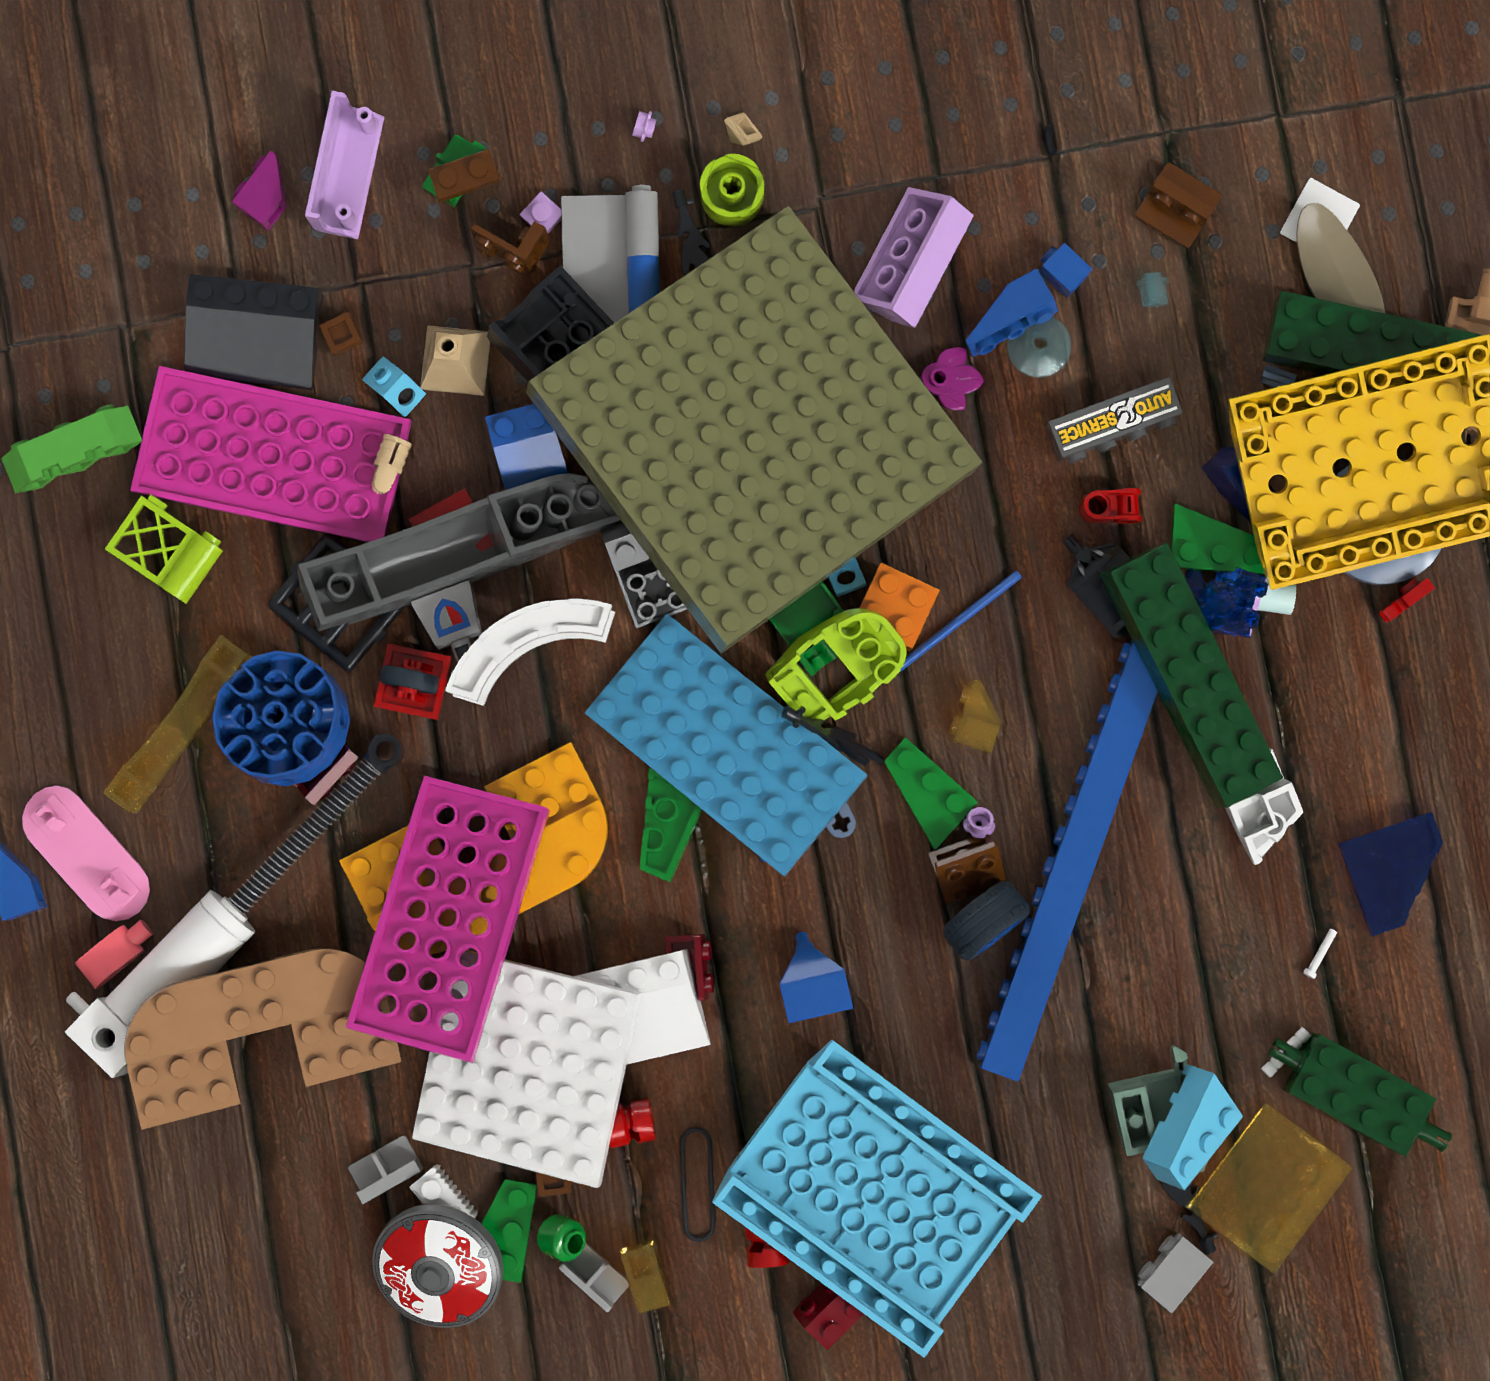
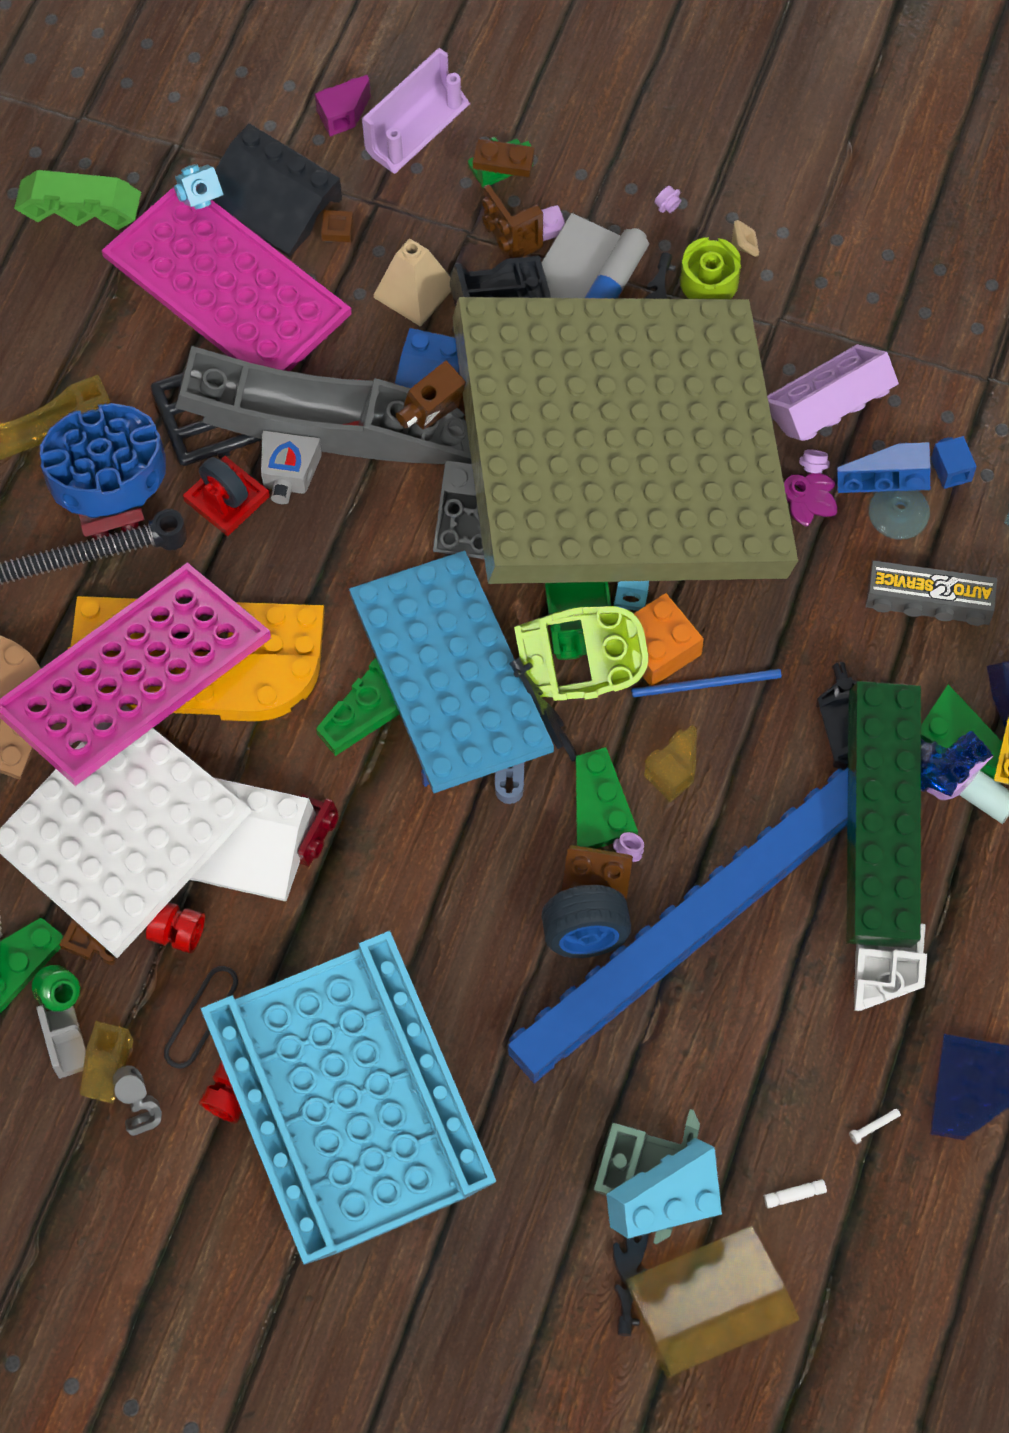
camera: 30 degrees right, 20 degrees down
(185, 375) = (207, 186): none -> medium azure brick
(187, 564) = (112, 320): lime piece -> none
(385, 472) = (313, 325): tan hinge -> none
(389, 382) = (353, 273): medium azure bracket -> none
(521, 633) = (346, 495): white fence -> none
(562, 480) = (432, 397): none -> reddish brown torso
(689, 1295) = (131, 1089): none -> dark grey leg
(813, 984) = (401, 898): blue piece -> none
(826, 1315) = (244, 1189): dark red bracket -> none
(937, 339) = (814, 461): none -> lavender plate
(1048, 141) = (995, 365): black leg -> none
(1118, 505) = (893, 657): red piece -> none
(1173, 1271) = (579, 1328): light grey brick -> none
(1359, 1094) = (843, 1264): dark green brick -> none

